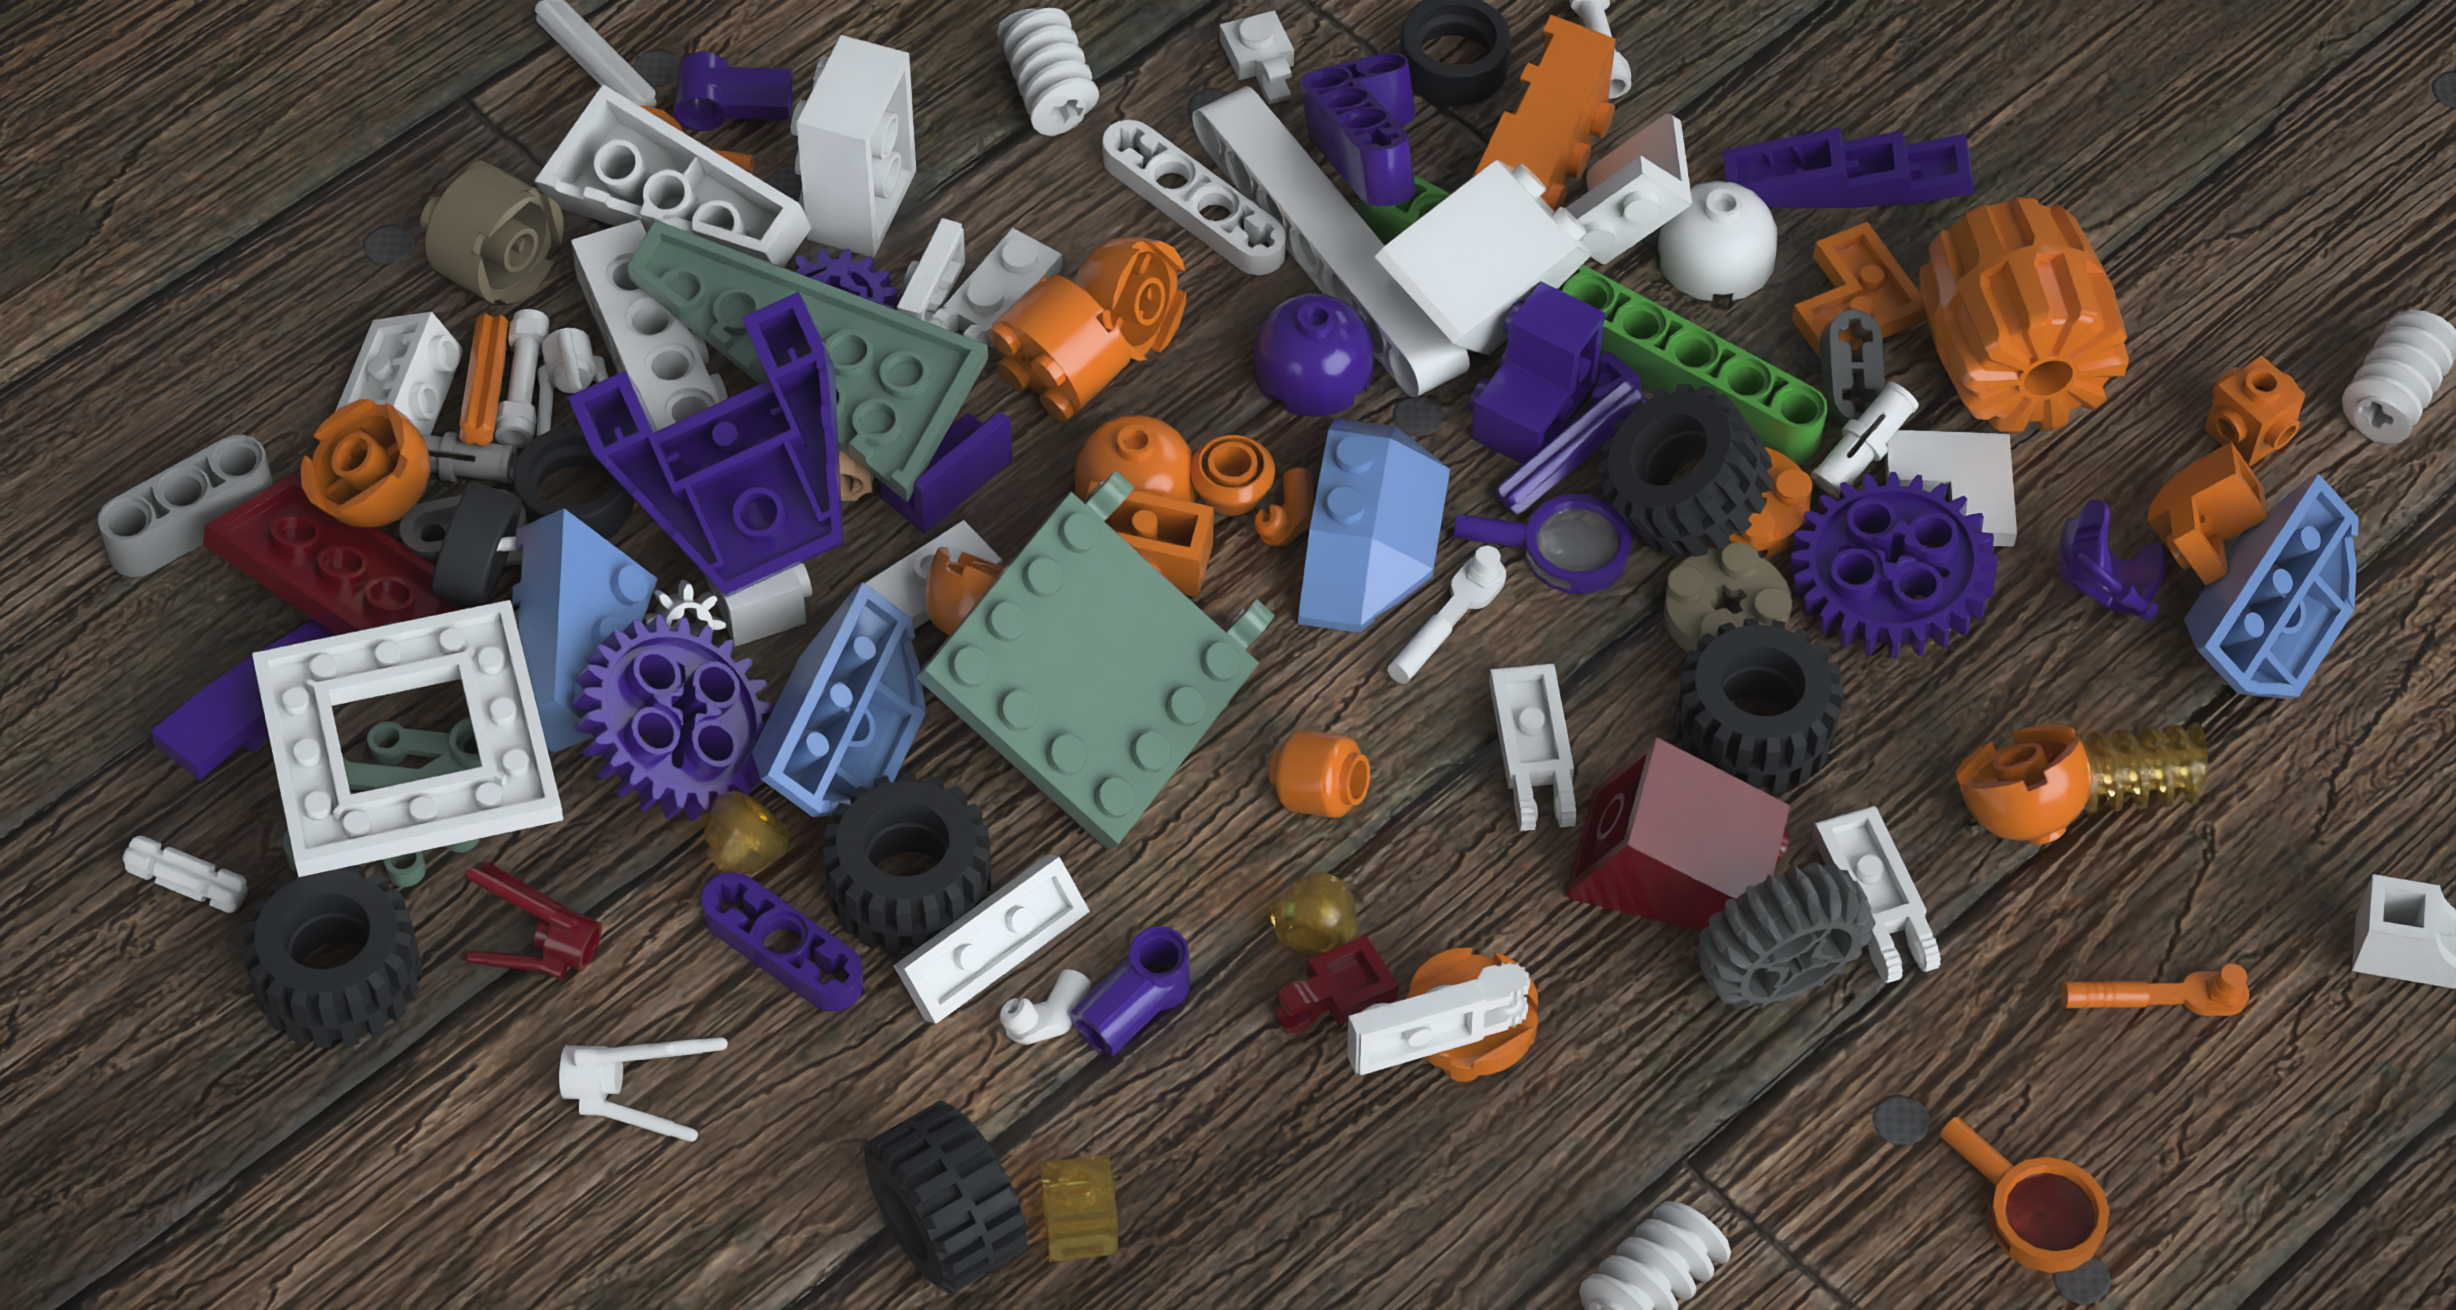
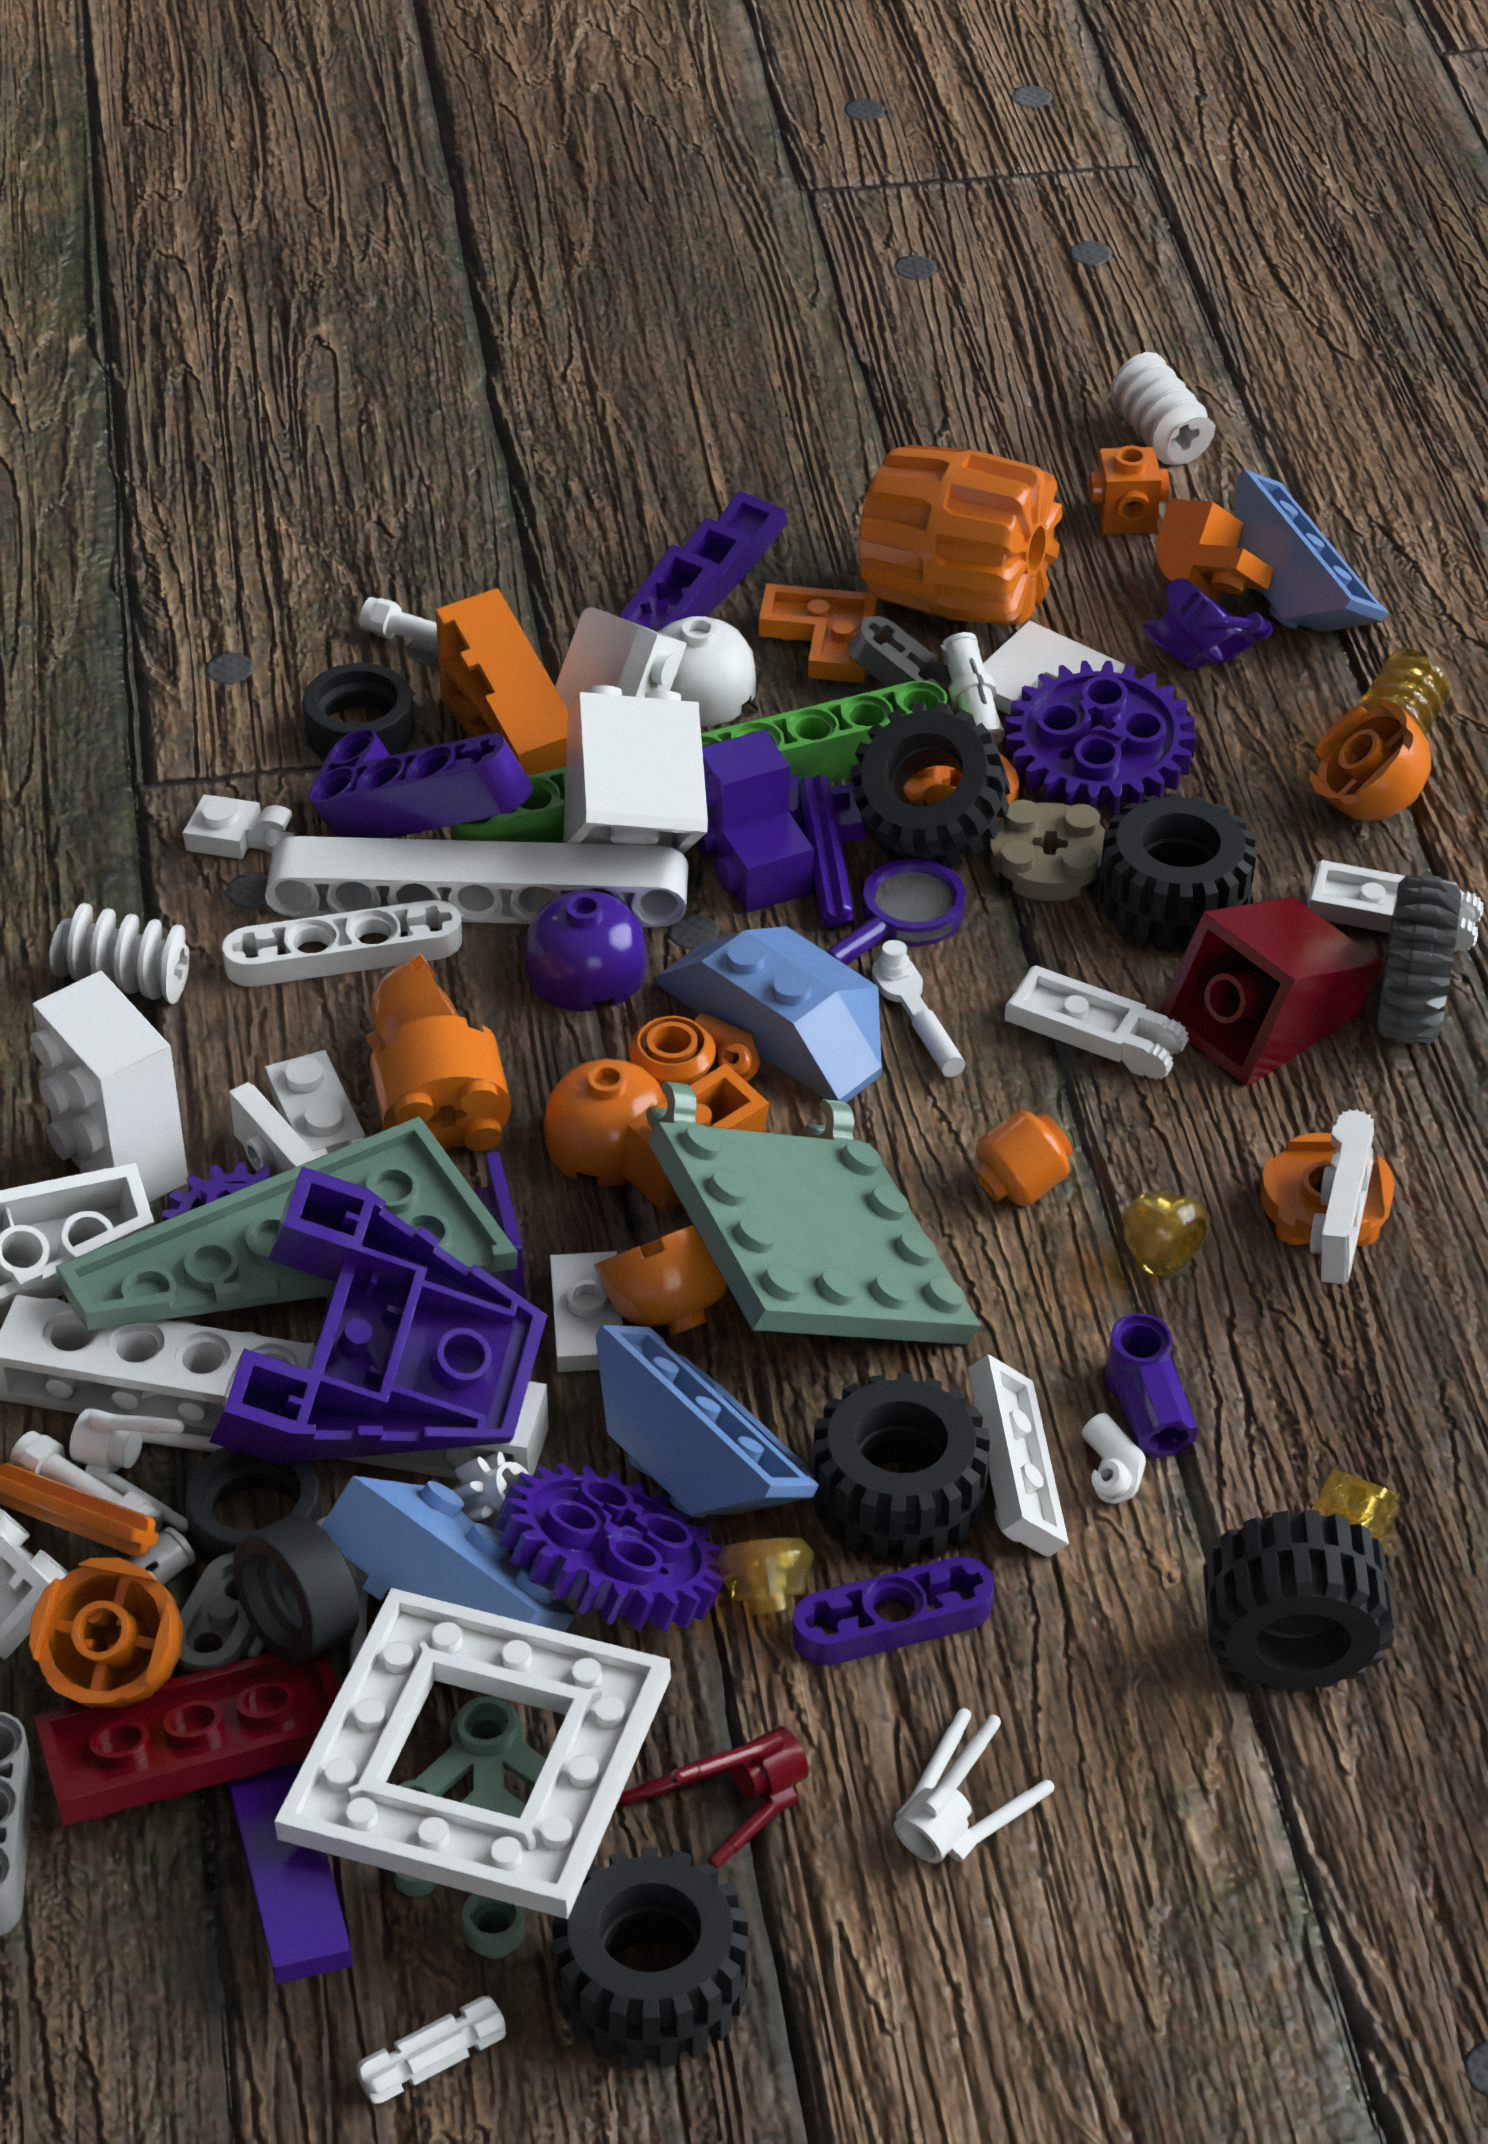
camera: 55 degrees left, 10 degrees down
(1339, 980) = (1241, 1251): dark red plate -> none

